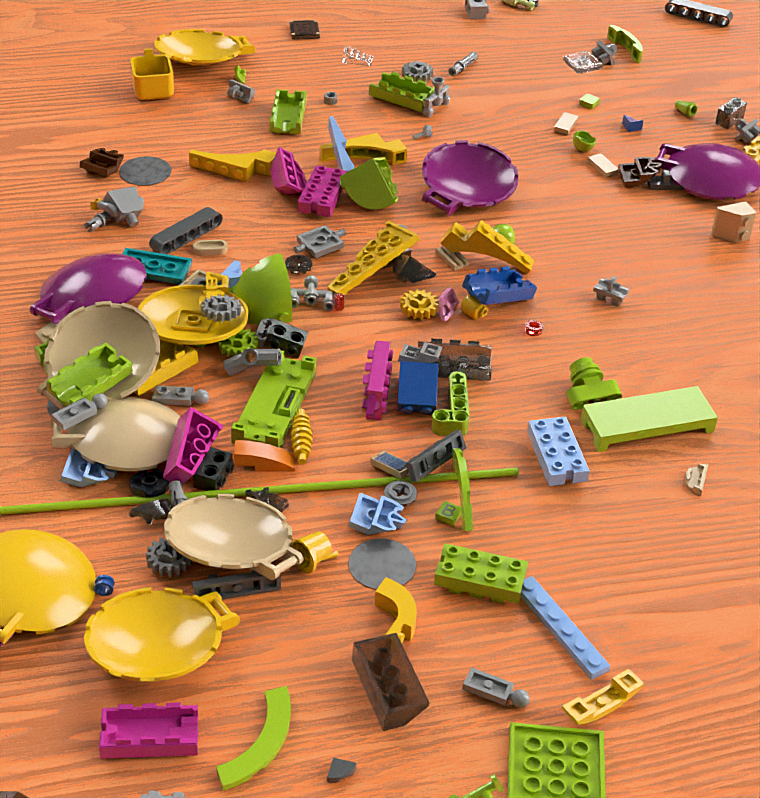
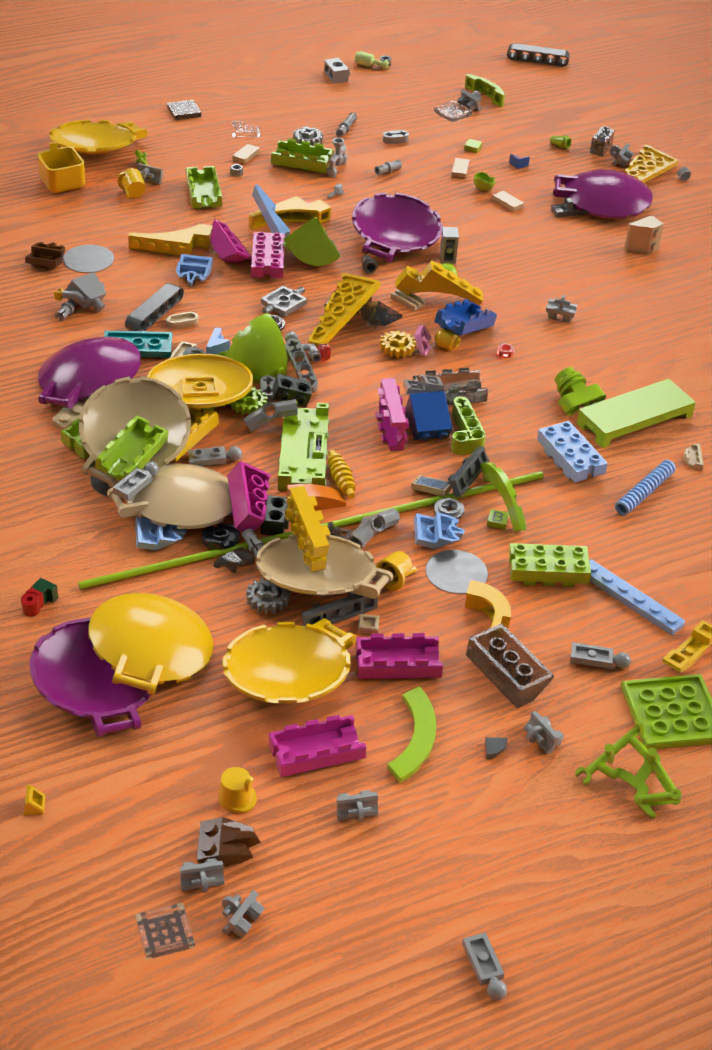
camera: 15 degrees left, 0 degrees up
(46, 765) = (237, 791): none -> yellow hat
(104, 585) = (216, 634): blue bush -> none
(212, 288) = (210, 360): yellow piece -> none
(217, 98) = (132, 183): none -> yellow hat
(220, 308) = (227, 370): light grey gear -> none
(230, 491) = (307, 528): none -> yellow piece
(243, 194) = (194, 268): none -> light blue plate
(262, 606) = (368, 624): none -> tan tile
(276, 648) = (398, 656): none -> dark pink piece
(301, 503) = (372, 524): none -> light grey piece
(307, 313) = (303, 365): none -> light grey beam
(347, 82) = (246, 153): none -> tile
(394, 764) = (540, 730): none -> light grey hips
(425, 214) = (369, 264): none -> dark grey cone
(488, 113) = (388, 167): none -> light grey pin
(510, 82) = (392, 137): none -> light grey beam
(515, 205) = (449, 245): none -> light grey brick
(625, 504) = (645, 487): none -> light blue piece
(638, 172) = (543, 202): reddish brown plate -> none

